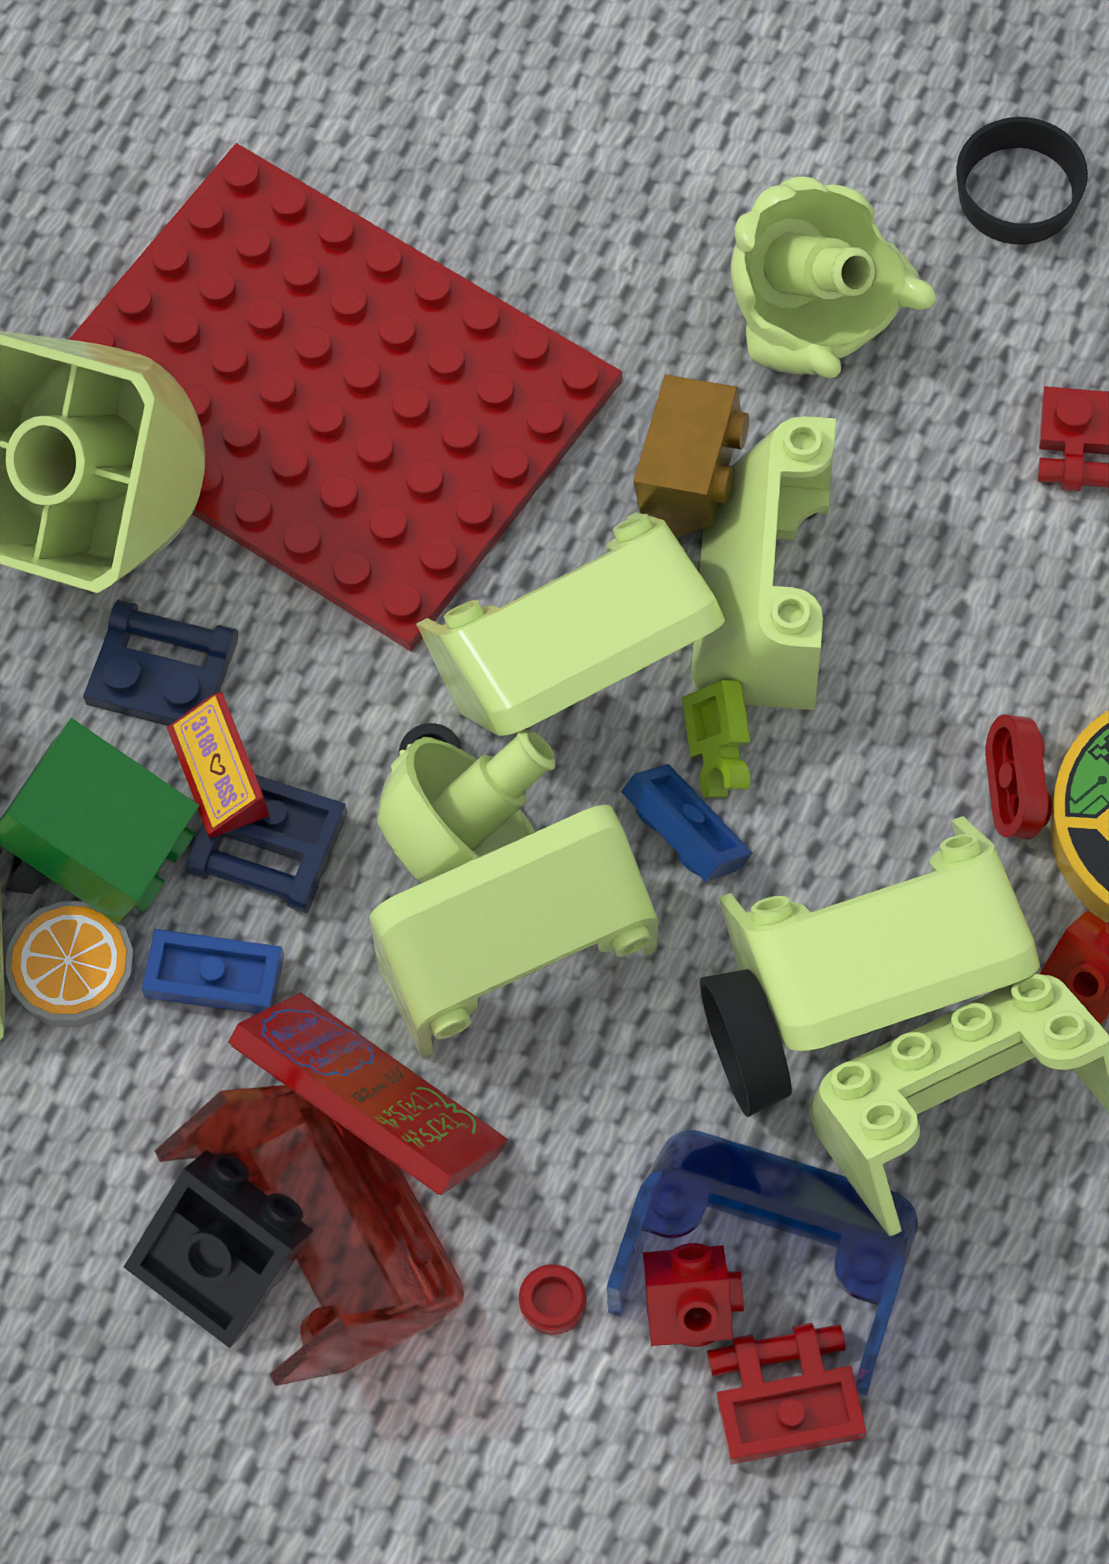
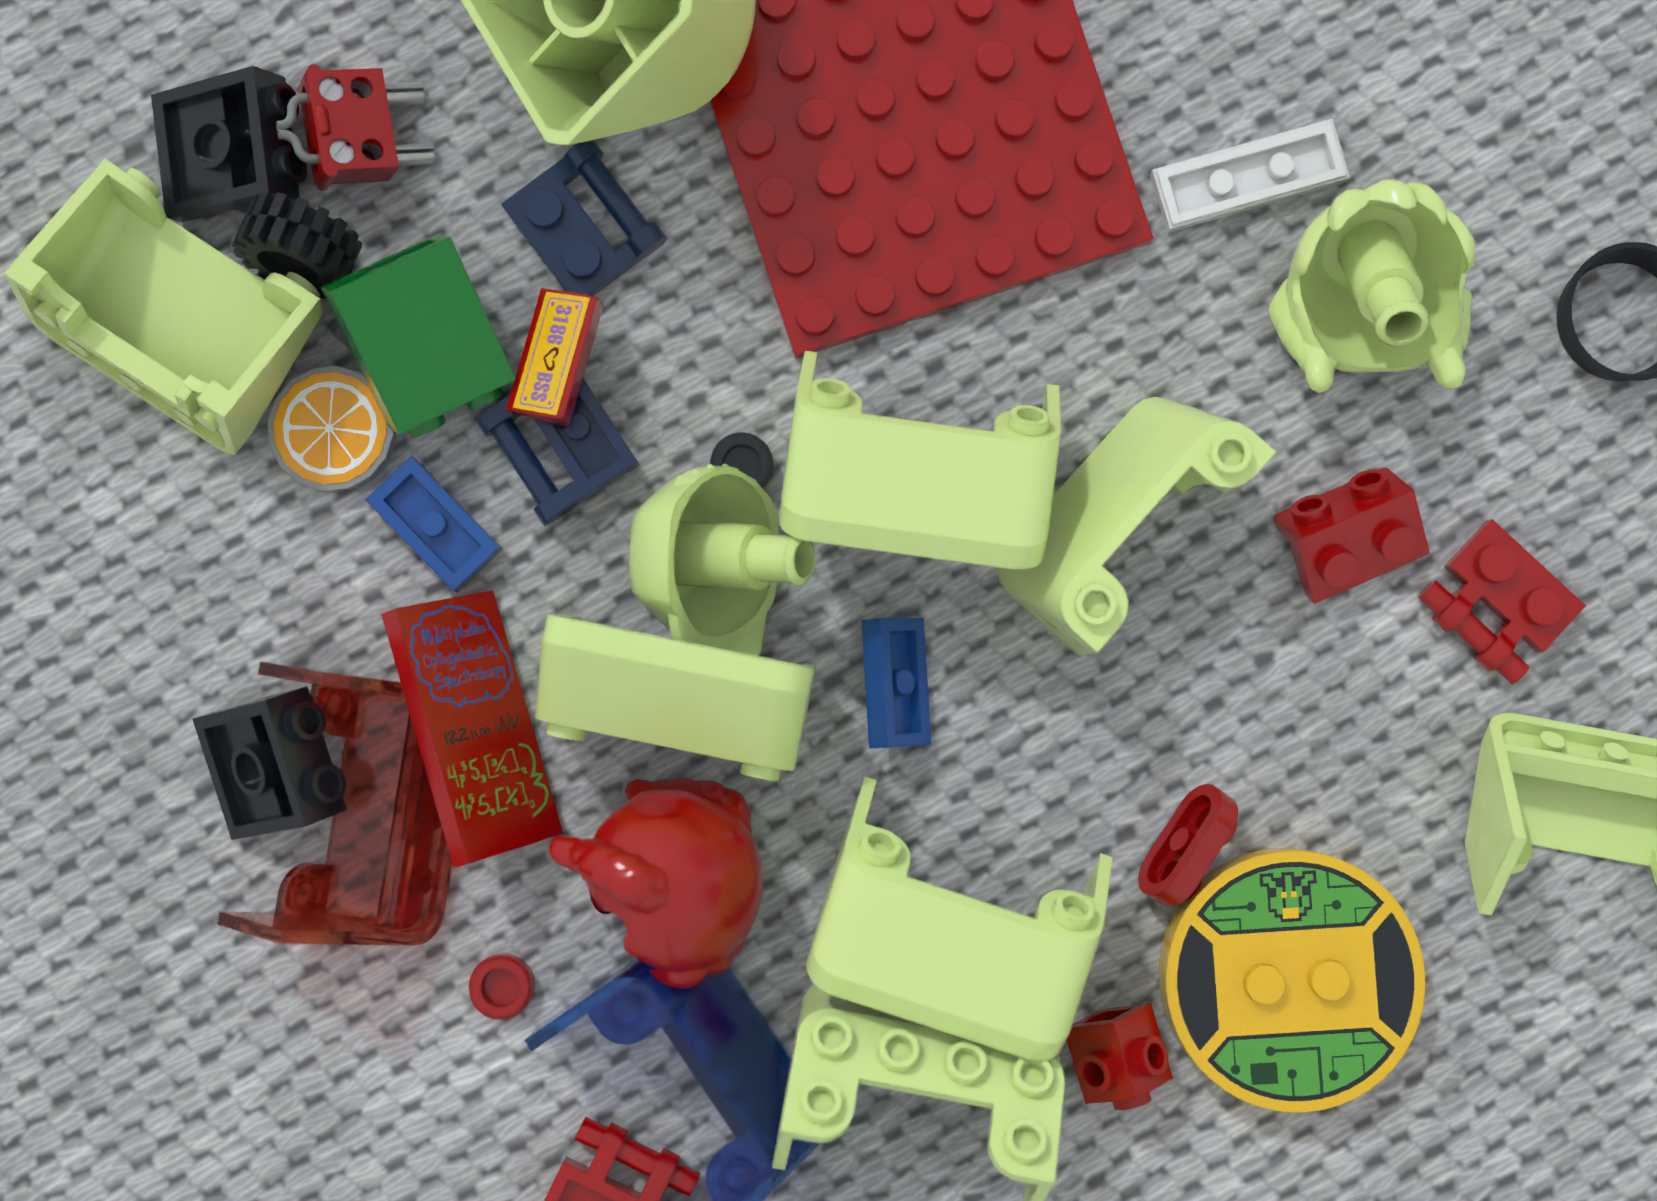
camera: 30 degrees right, 20 degrees up
(627, 1073) = (678, 874): none -> red piece
(658, 283) = (1249, 175): none -> white tile
(689, 453) = (1139, 373): pearl gold slope -> none
(690, 1295) = (598, 1077): red brick -> none
(715, 732) = (981, 626): lime plate -> none
(746, 1039) = (793, 913): black tyre -> none
(950, 468) = (1353, 532): none -> red bracket

